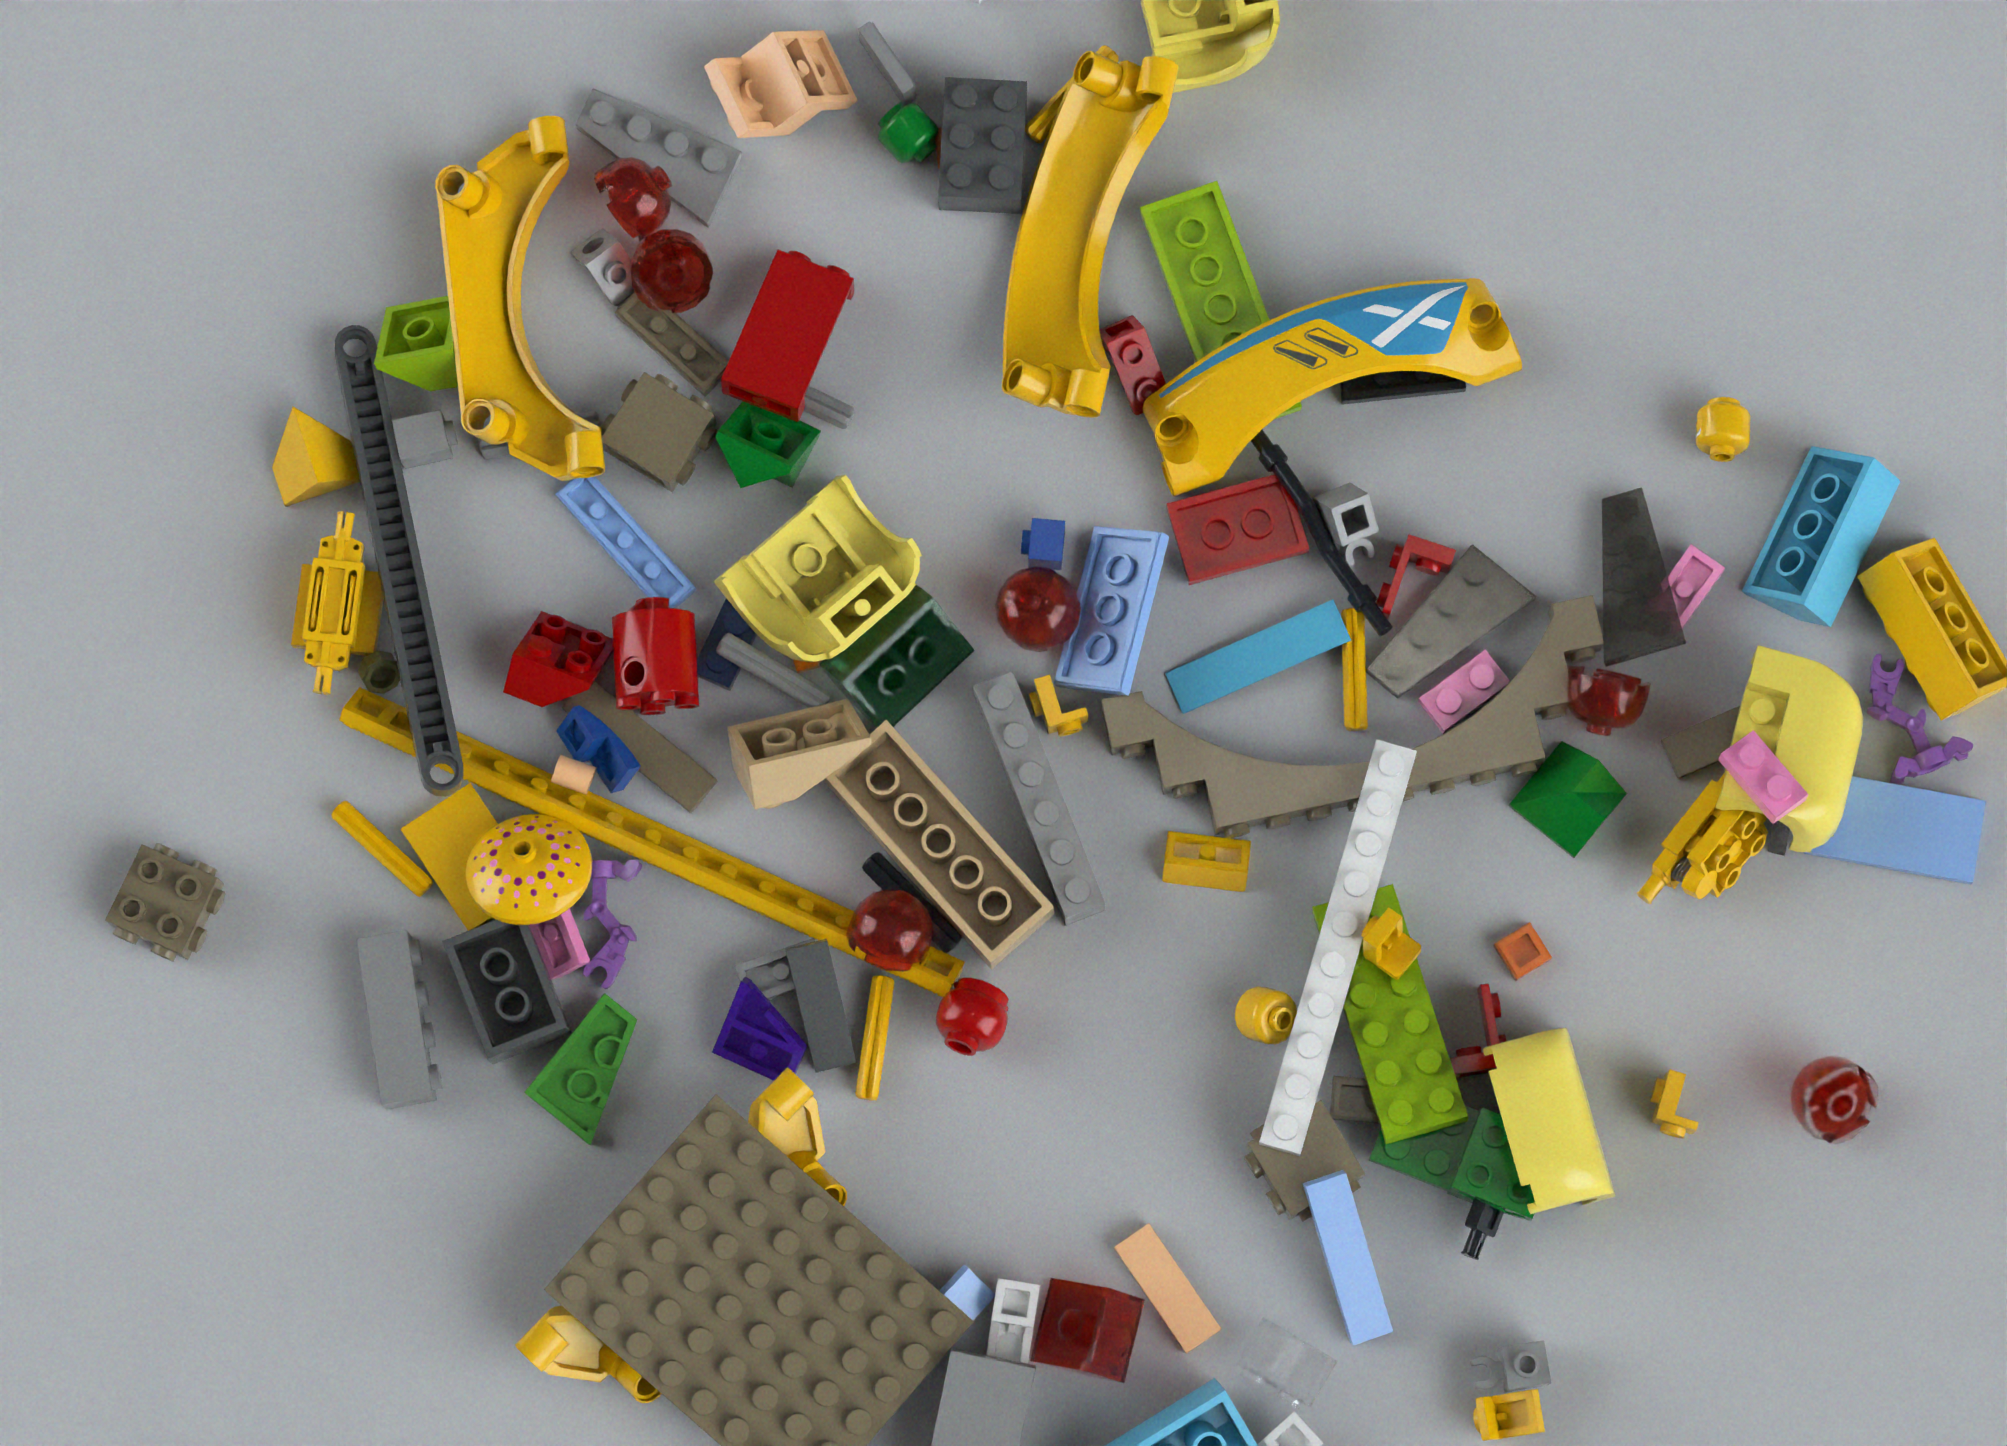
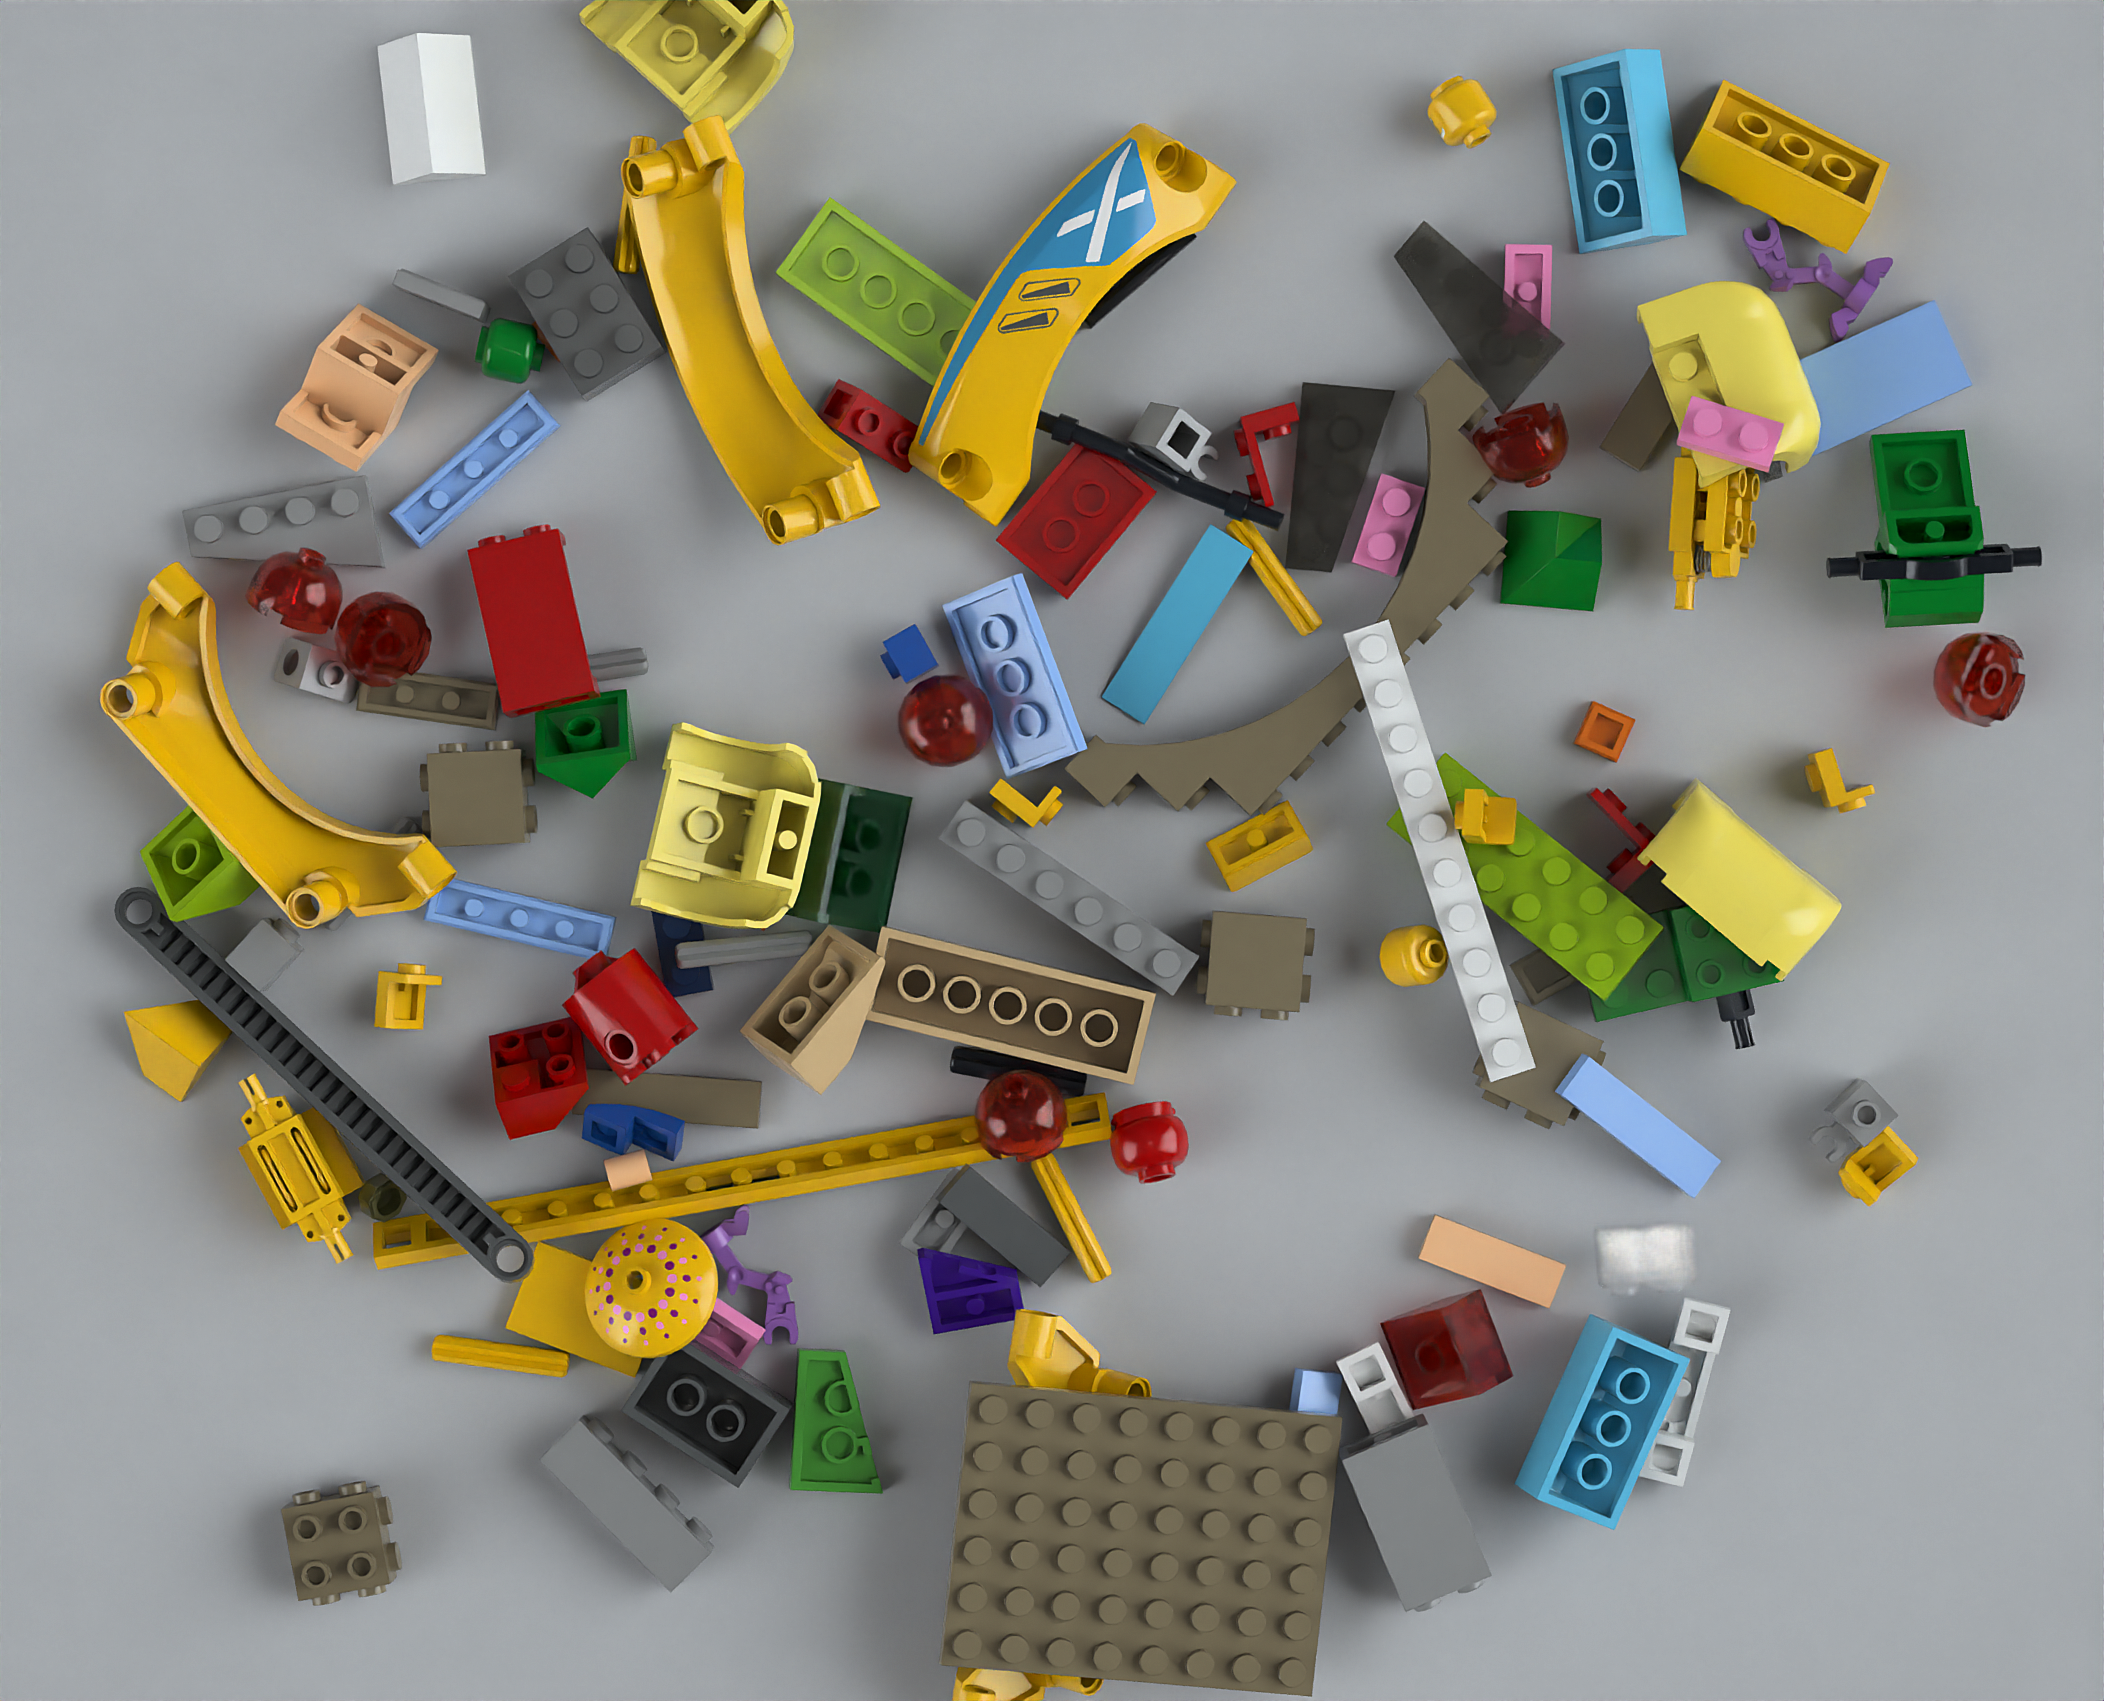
camera: 35 degrees left, 10 degrees up
(500, 537) = (402, 996): none -> yellow bracket
(823, 202) = (474, 469): none -> light blue tile
(1143, 940) = (1255, 963): none -> dark tan brick
(1865, 965) = (1929, 533): none -> green piece

